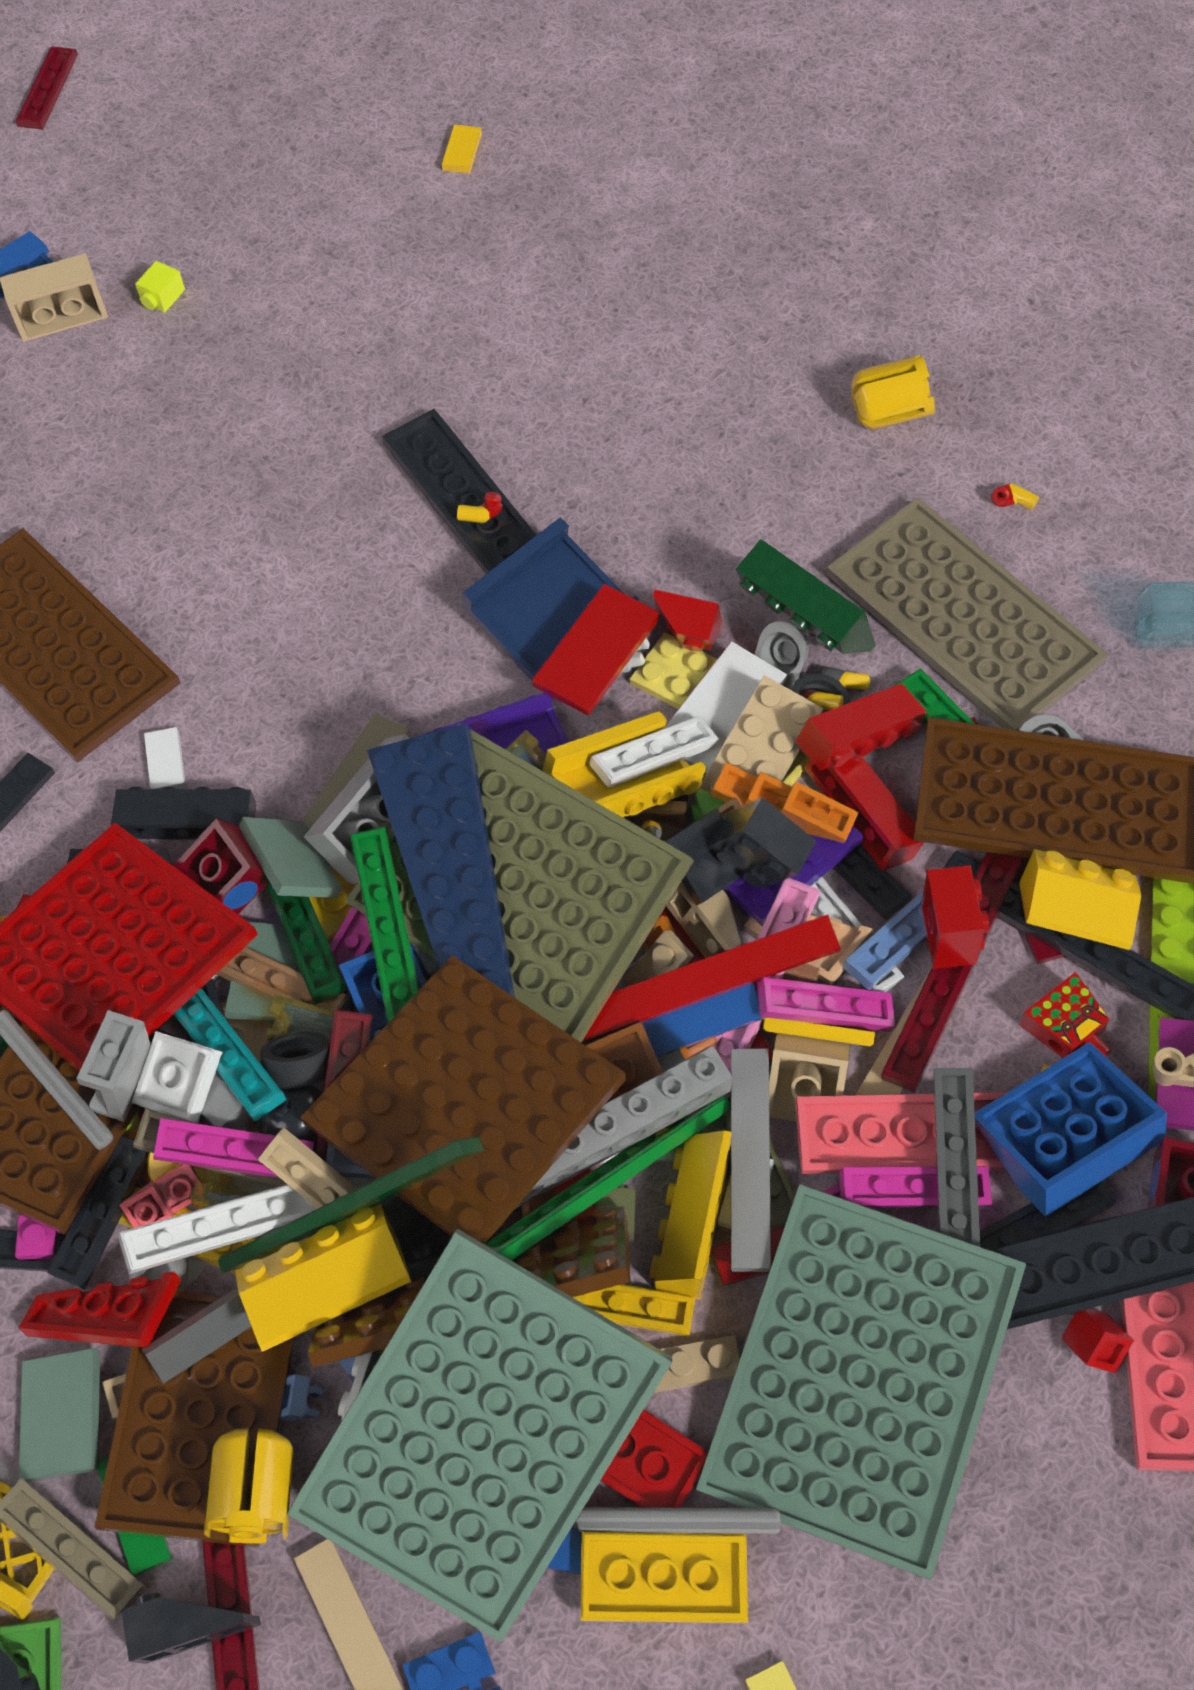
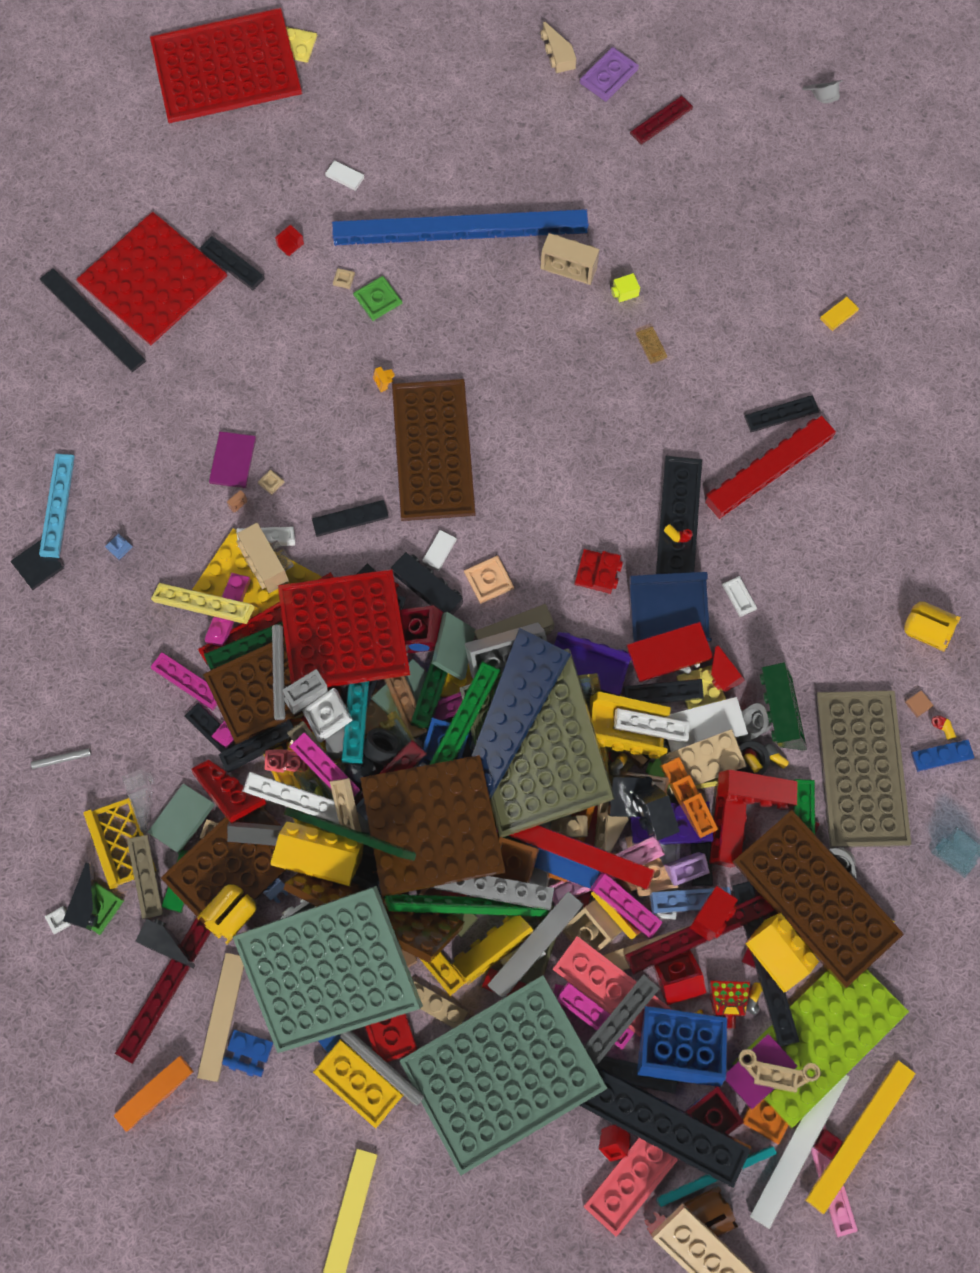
camera: 35 degrees right, 10 degrees up
(251, 330) = (651, 345): none -> clear yellow tile
(267, 747) = (488, 579): none -> light nougat tile
(413, 629) = (599, 571): none -> red plate
(488, 297) = (781, 413): none -> black tile
(528, 362) = (770, 467): none -> red brick
(625, 532) = (739, 596): none -> white tile
(643, 696) = (666, 691): none -> black tile
(862, 896) = (687, 868): none -> lavender slope
(960, 493) = (919, 704): none -> nougat tile
(982, 1039) = (680, 978): none -> red slope
(1043, 530) = (942, 755): none -> blue plate
(1097, 989) = (753, 997): none -> arm

